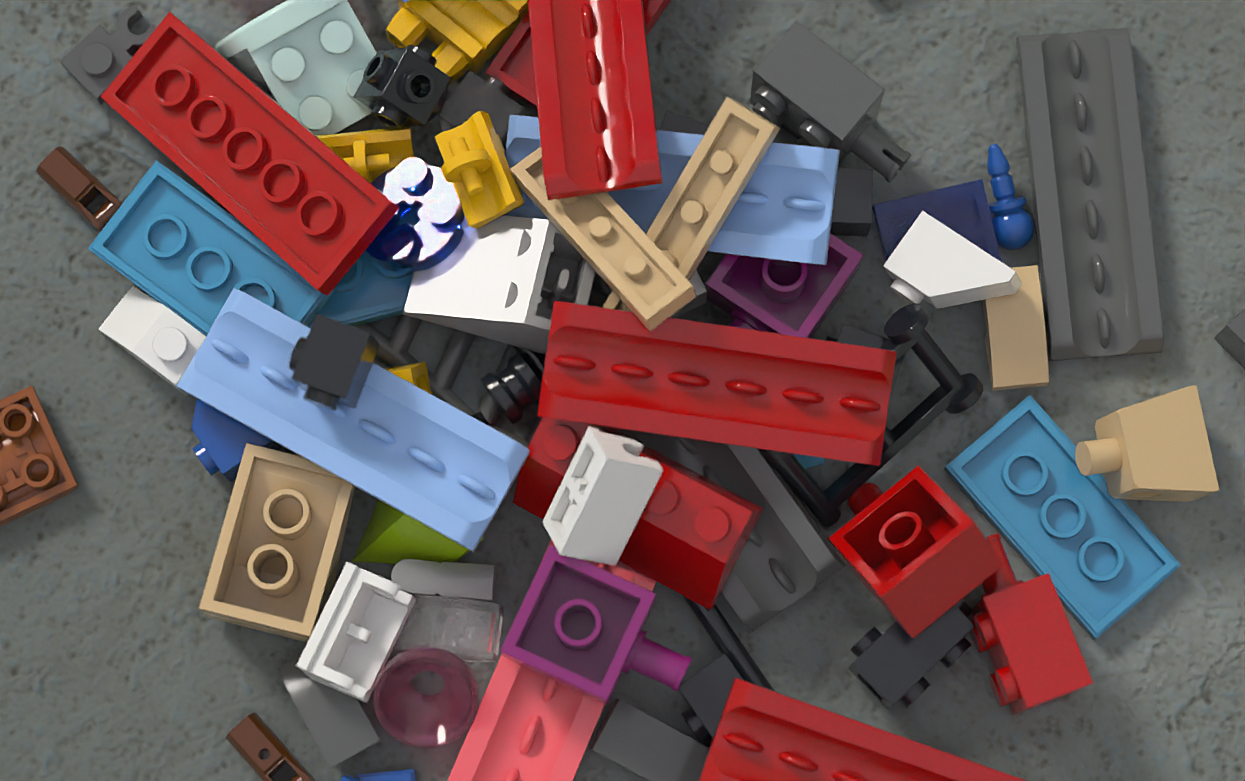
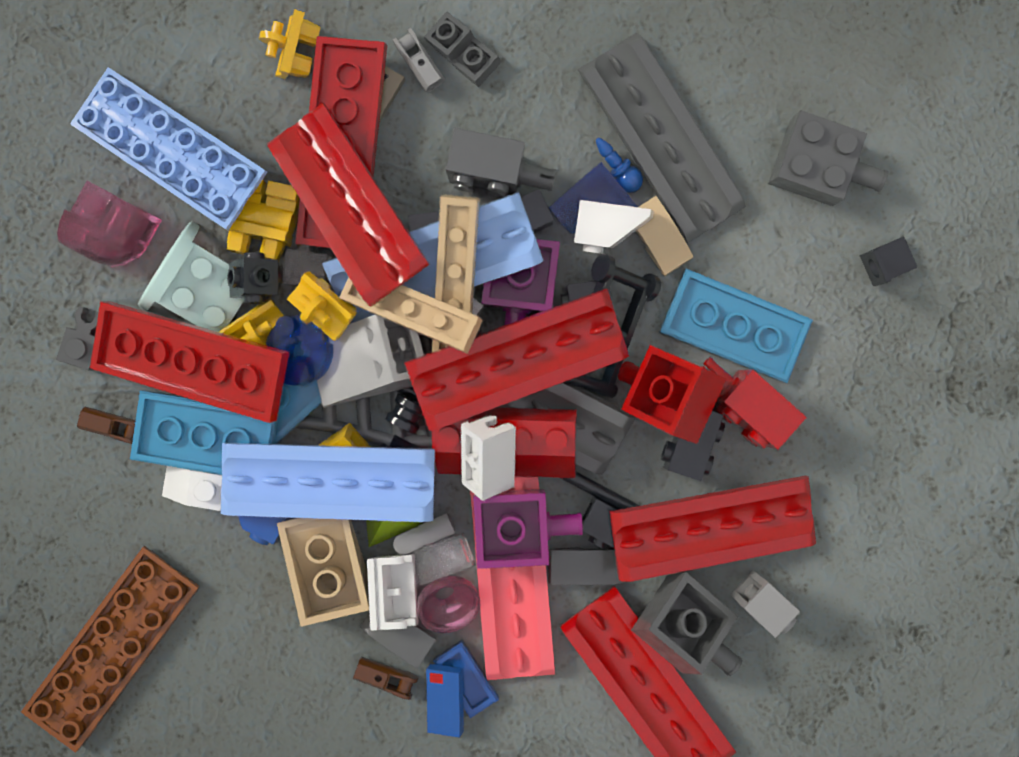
camera: 30 degrees left, 10 degrees up
(333, 363) = (300, 462): black brick -> none
(1153, 450) = (768, 264): tan torso -> none

